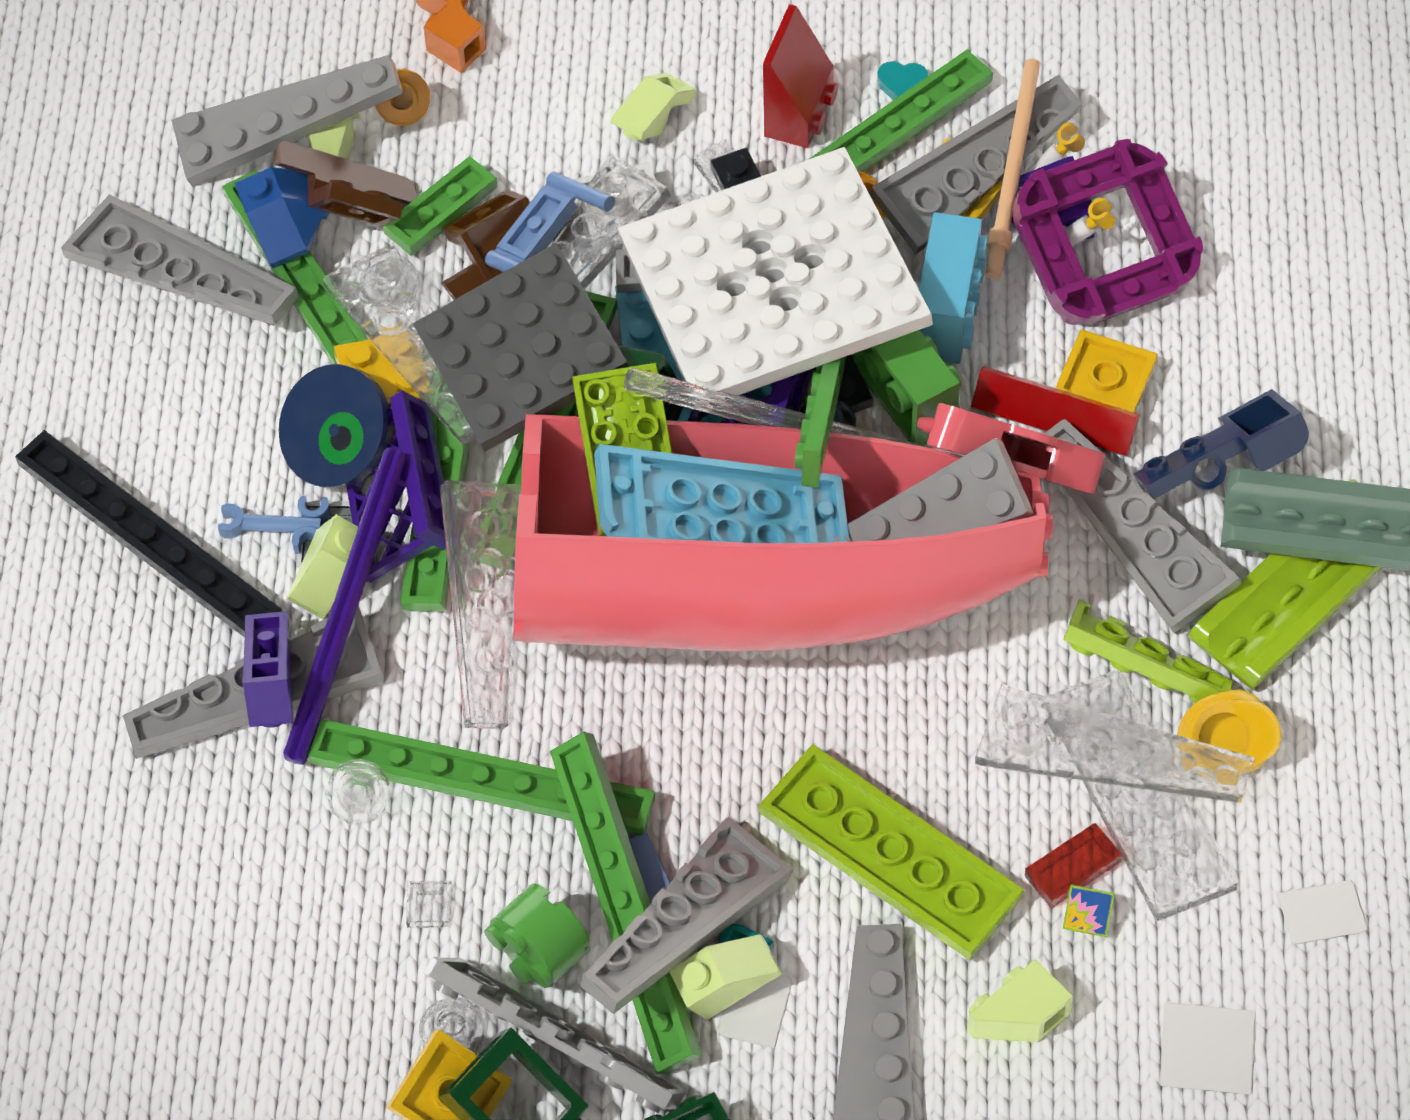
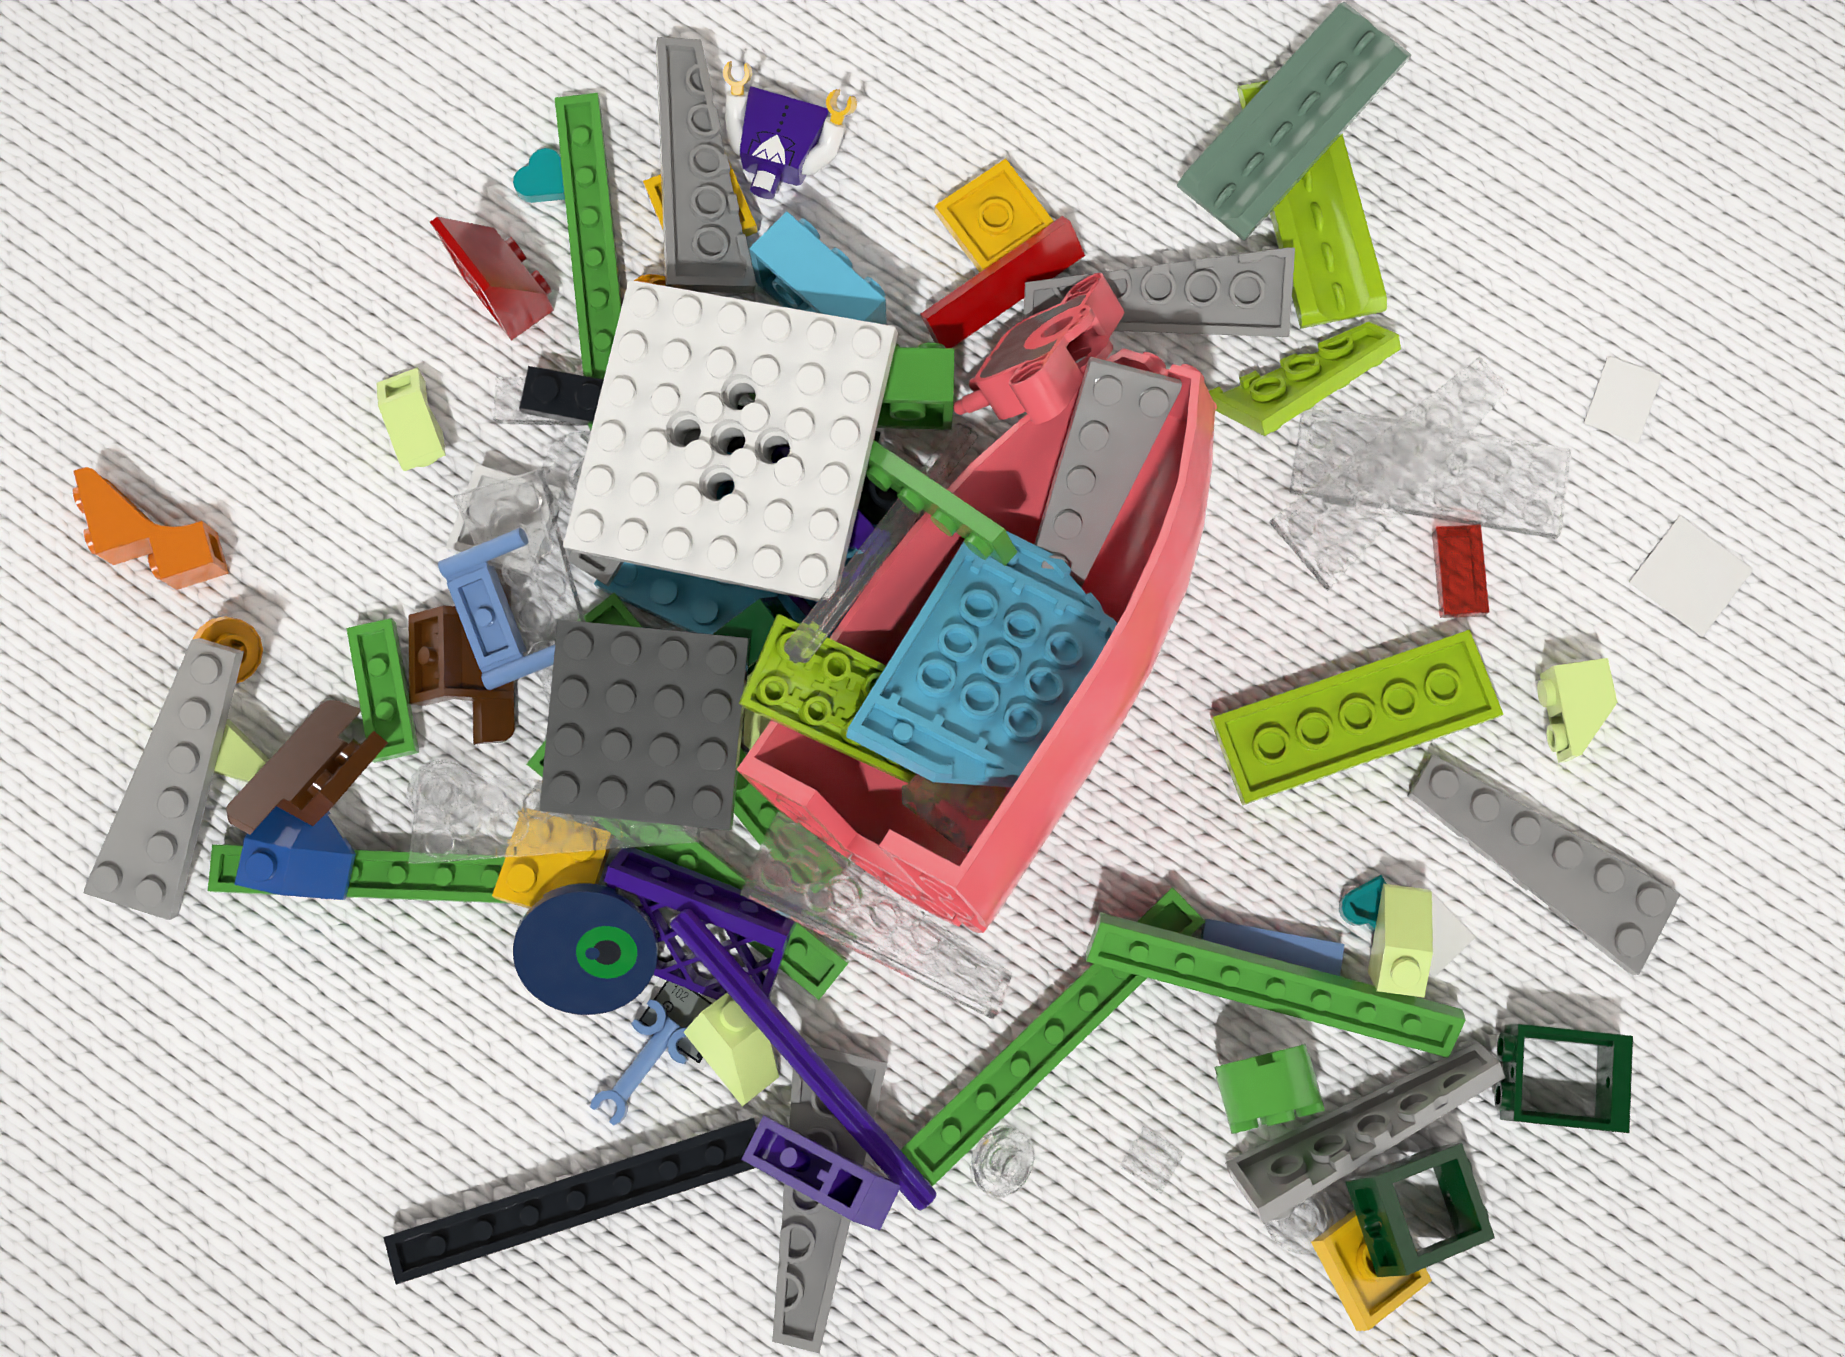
camera: 60 degrees left, 20 degrees up
(160, 255) = (236, 1008): light grey wing -> none
(701, 901) = (1322, 916): light grey wing -> none
(1000, 236) = (725, 139): light nougat bar -> none
(1088, 910) = (1517, 588): tile -> none
(1157, 208) = (833, 172): magenta plate -> none
(1235, 723) = (1430, 353): yellow piece -> none
(1260, 430) = (1146, 133): dark blue plate -> none

